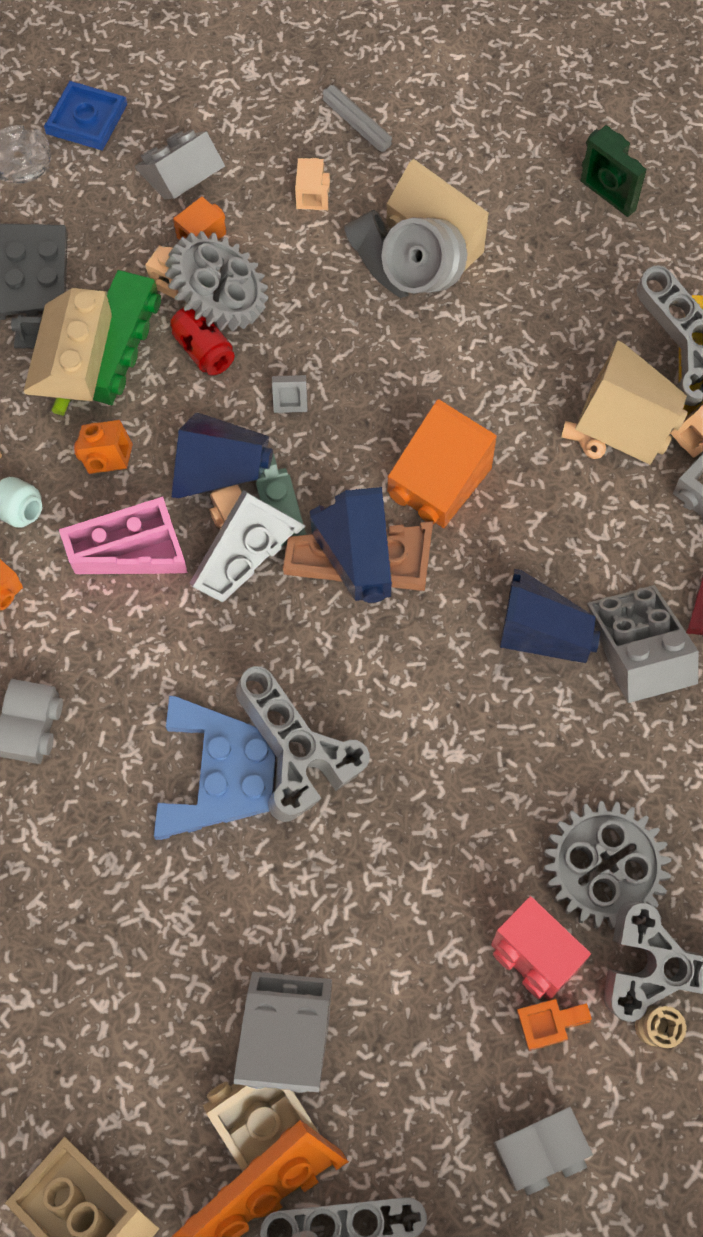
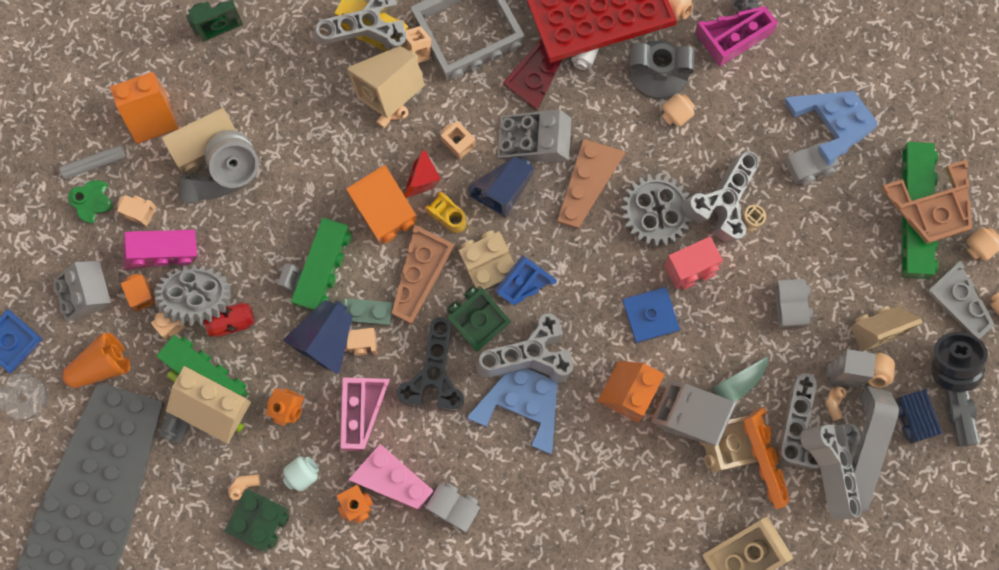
camera: 70 degrees left, 10 degrees up
(42, 621) = (392, 479): none -> bright pink wedge
(91, 213) = (97, 362): none -> orange cone
(202, 613) = (421, 382): none -> black beam
(244, 541) = (387, 339): wing -> none
(267, 222) = (158, 248): none -> dark pink wedge
(290, 924) = (631, 389): none -> orange slope
(304, 136) = (93, 201): none -> green plate
(325, 423) = (321, 265): none -> green brick
(325, 655) = (477, 317): none -> dark green plate
(356, 542) = (419, 272): dark blue slope -> none
(371, 1105) = (742, 382): none -> sand green piece
(409, 701) = (523, 281): none -> blue wing
(420, 642) = (486, 260): none -> tan plate
(432, 917) = (651, 315): none -> blue plate
(454, 133) = (144, 107): none -> orange slope
(471, 557) = (444, 210): none -> yellow piece
(506, 505) = (422, 176): none -> red slope
(546, 1024) = (729, 276): orange plate -> none
(578, 544) = (455, 131): none -> light nougat brick
(617, 745) = (590, 175): none -> nougat wing

